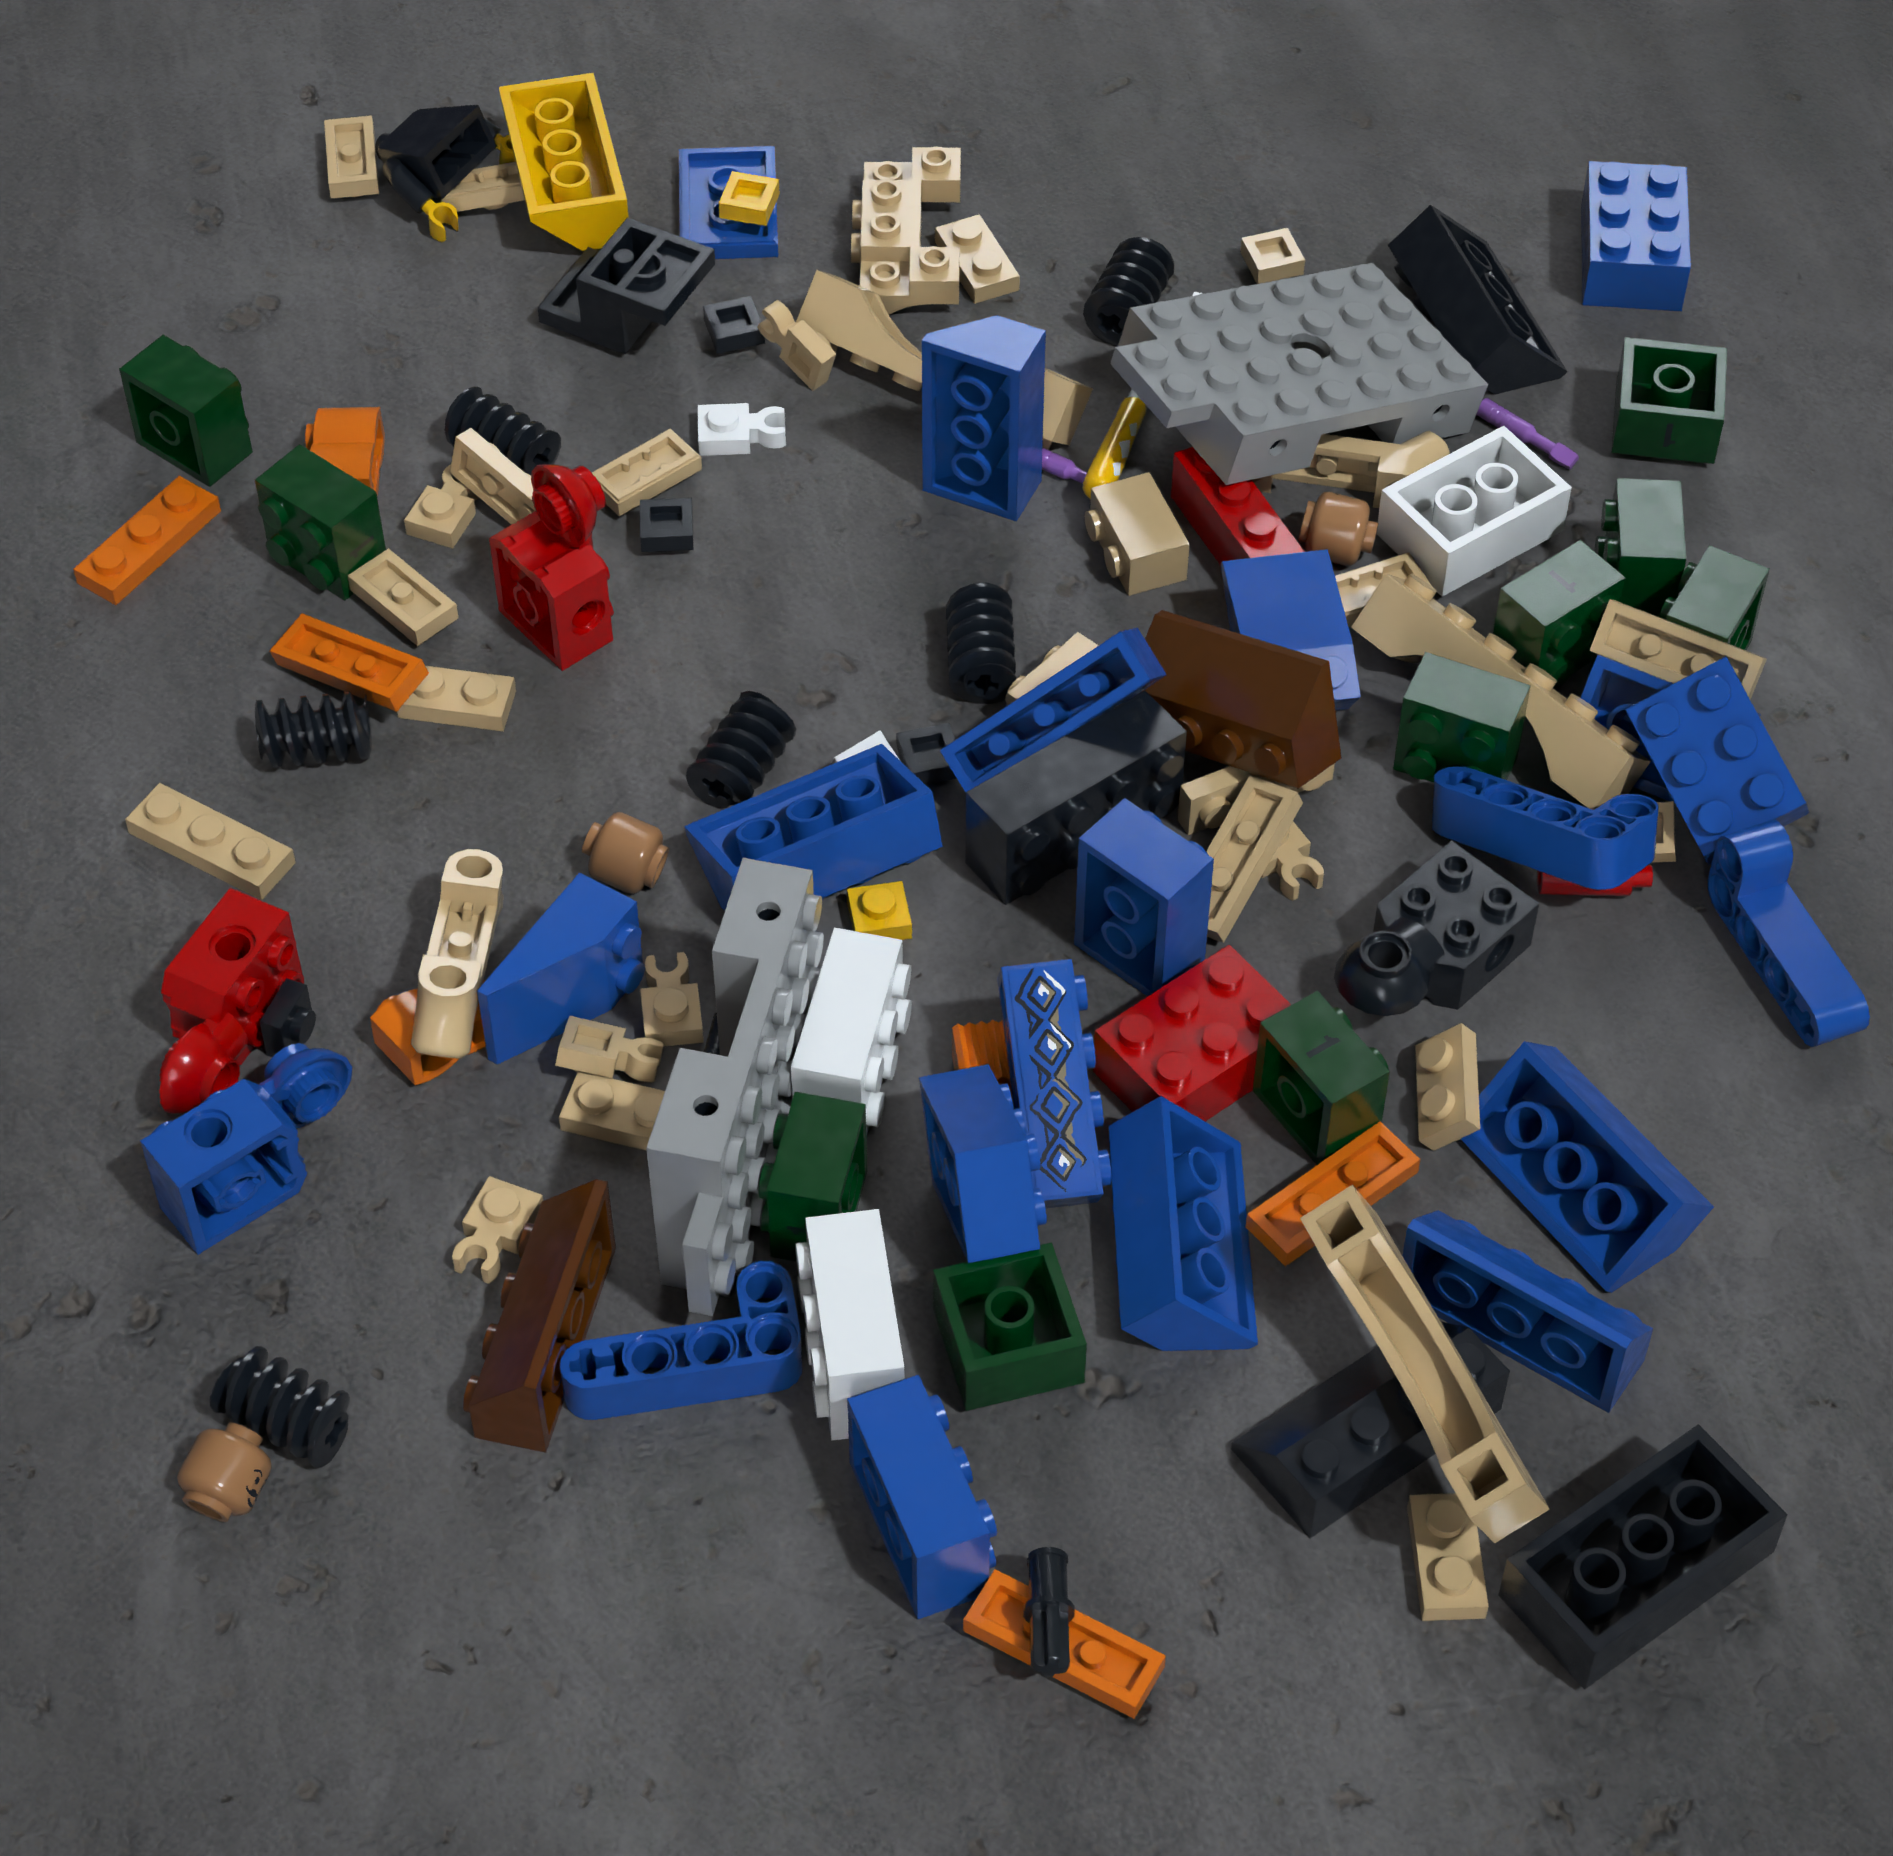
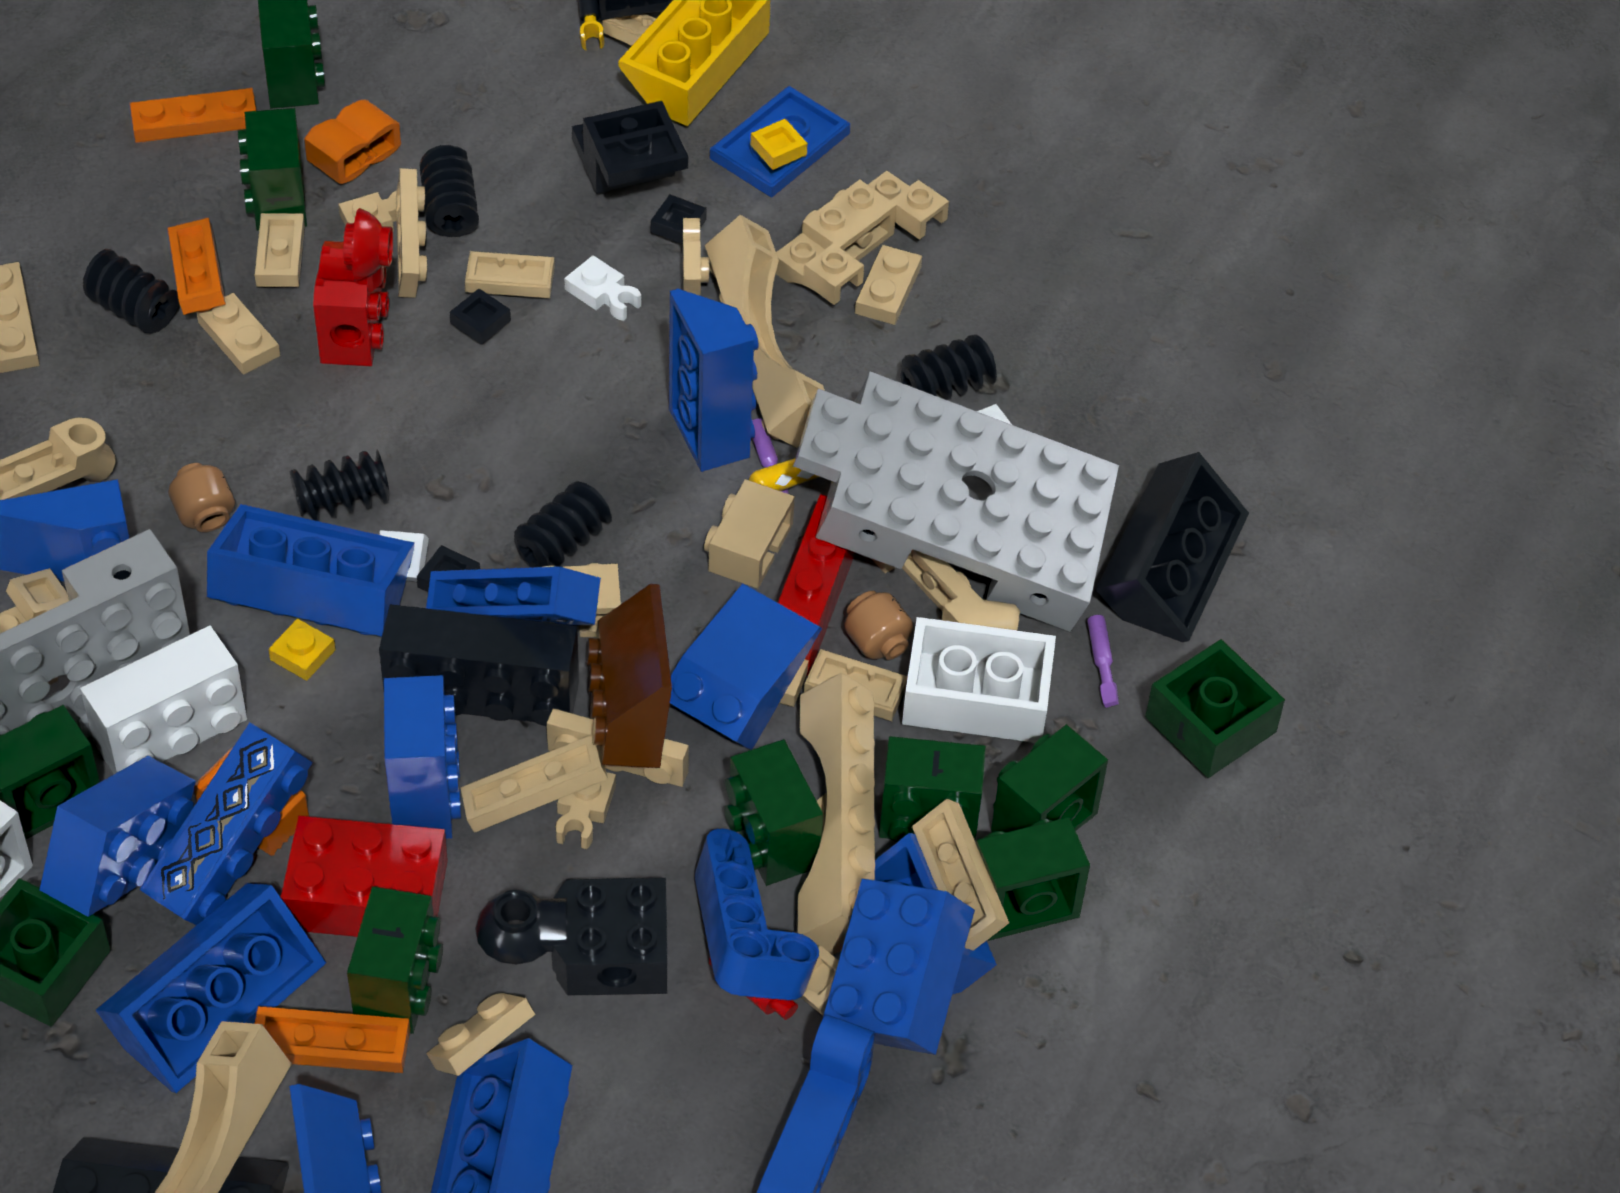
camera: 40 degrees right, 0 degrees up
(1272, 256) = (1079, 417): tan plate -> none
(1635, 236) = (1347, 580): blue brick -> none

